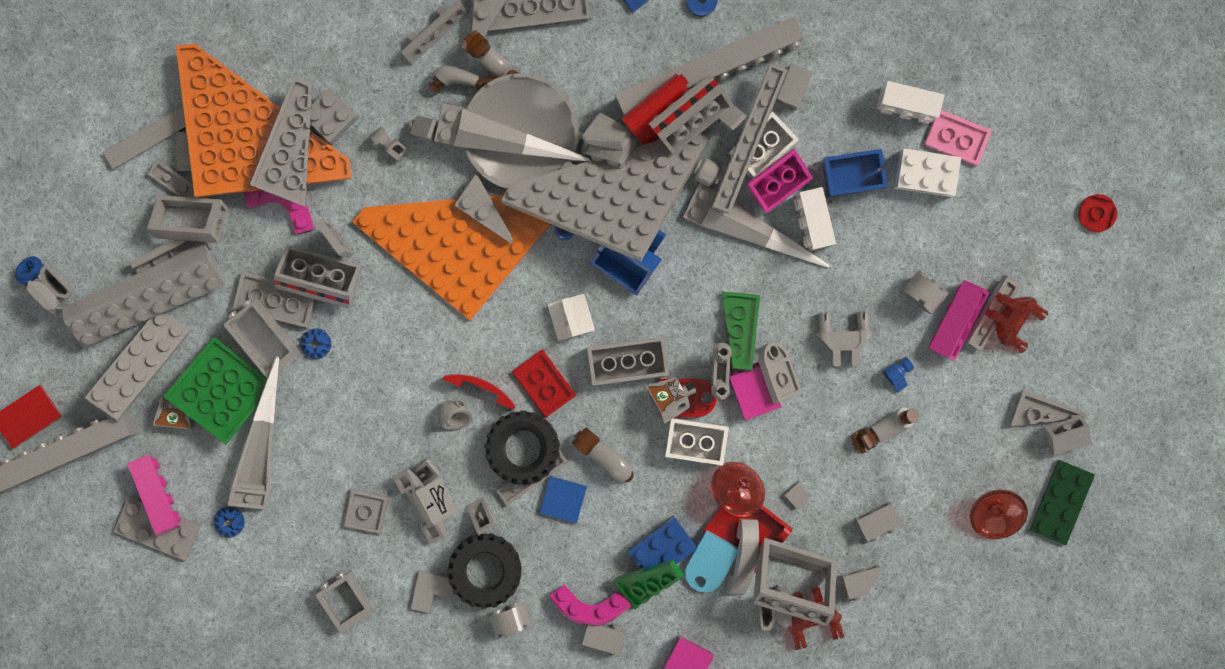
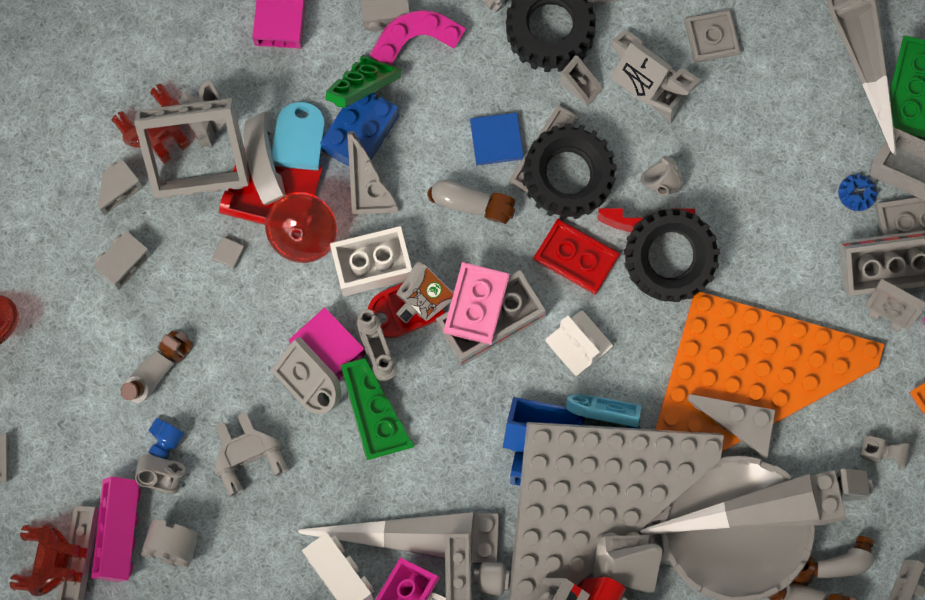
camera: 160 degrees right, 15 degrees down
(480, 326) = (704, 255): none -> black tyre
(575, 257) = (604, 409): none -> medium azure tile
(635, 373) = (476, 303): none -> bright pink tile
(676, 500) = (367, 188): none -> light grey wing
(914, 347) = (158, 473): none -> light grey piece

